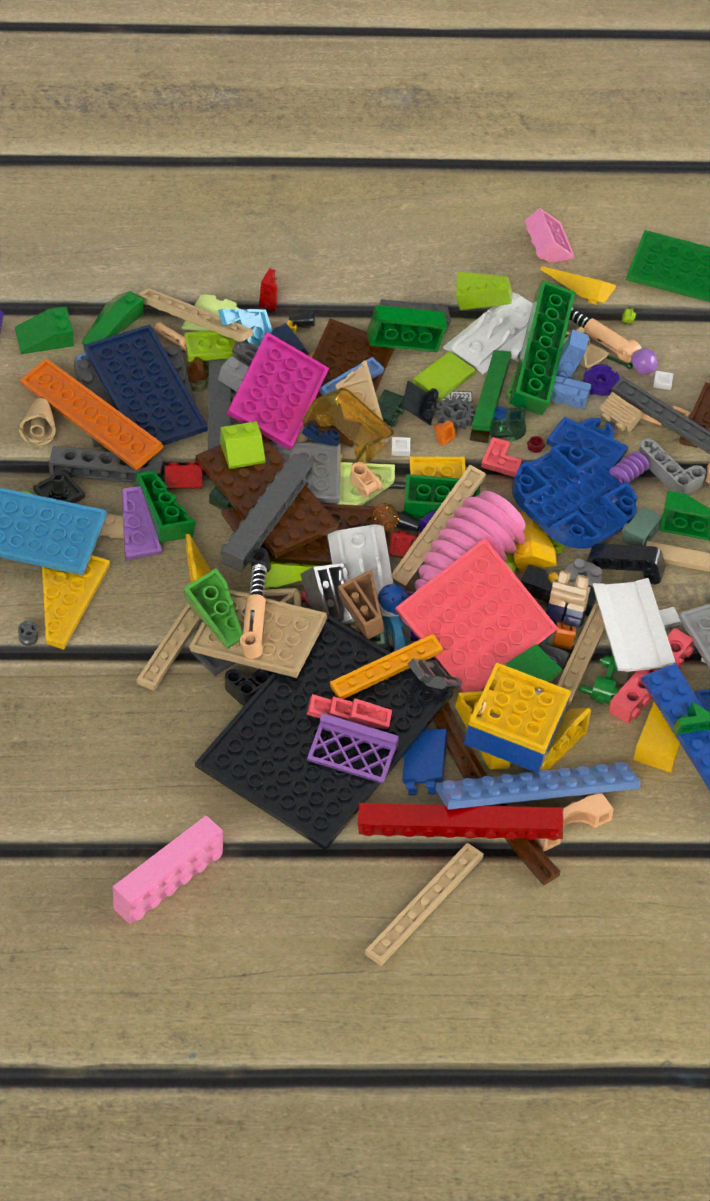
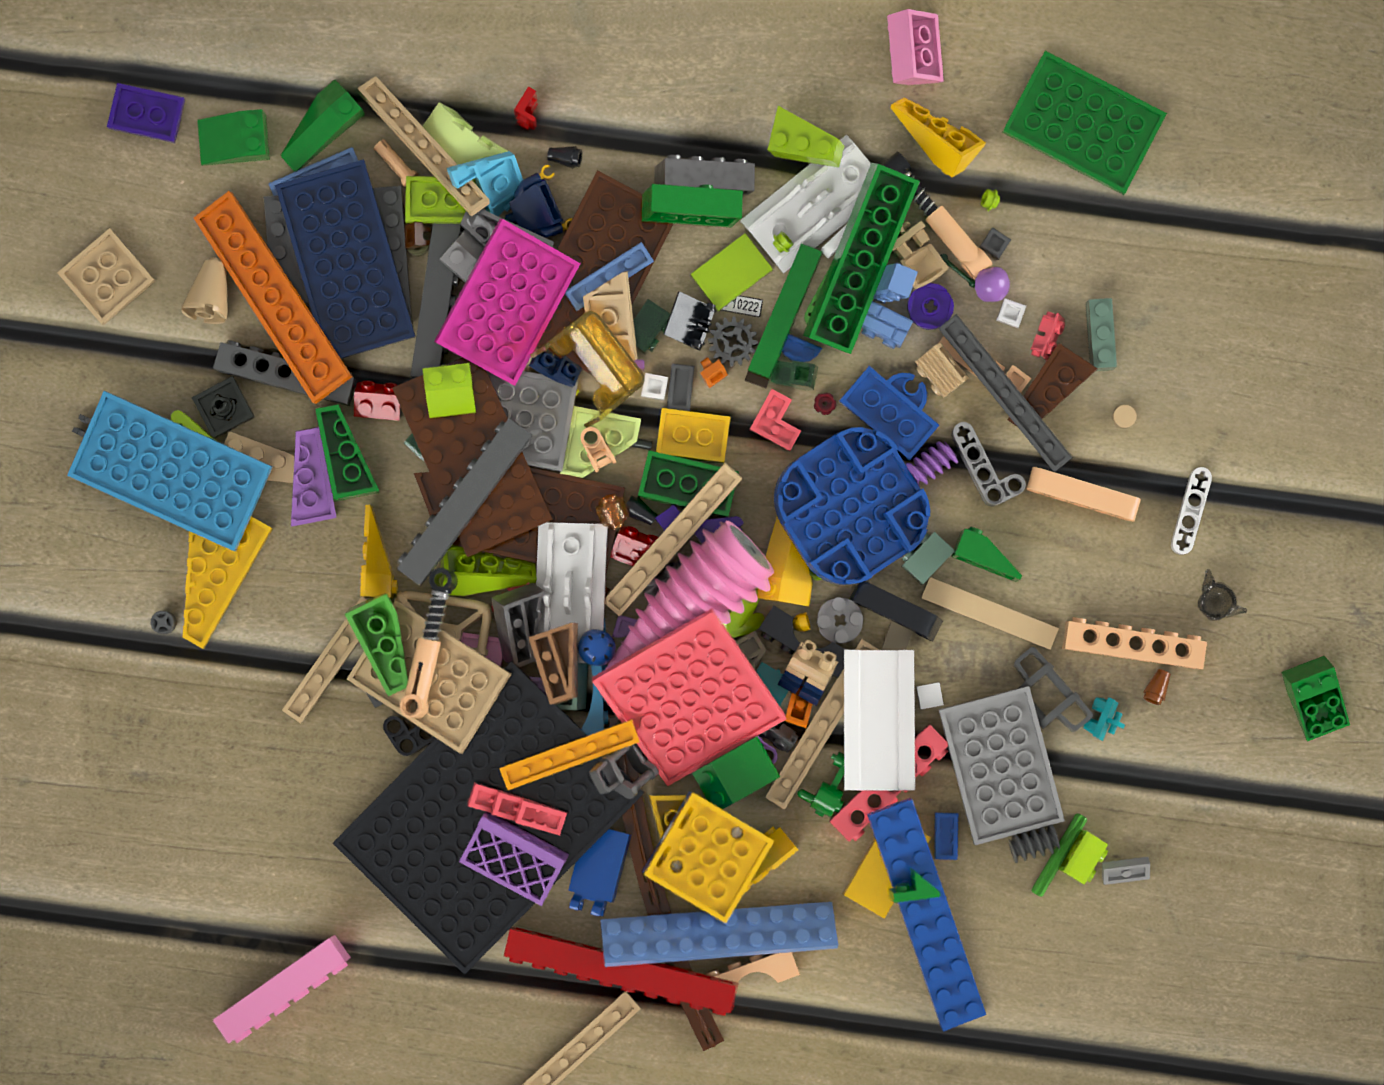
camera: 15 degrees right, 35 degrees up
(420, 444) = (680, 387): none -> dark grey tile
(479, 348) = (782, 242): none -> lime plate
(643, 340) = (995, 243): none -> dark grey tile
(694, 387) = (1052, 327): none -> coral hinge

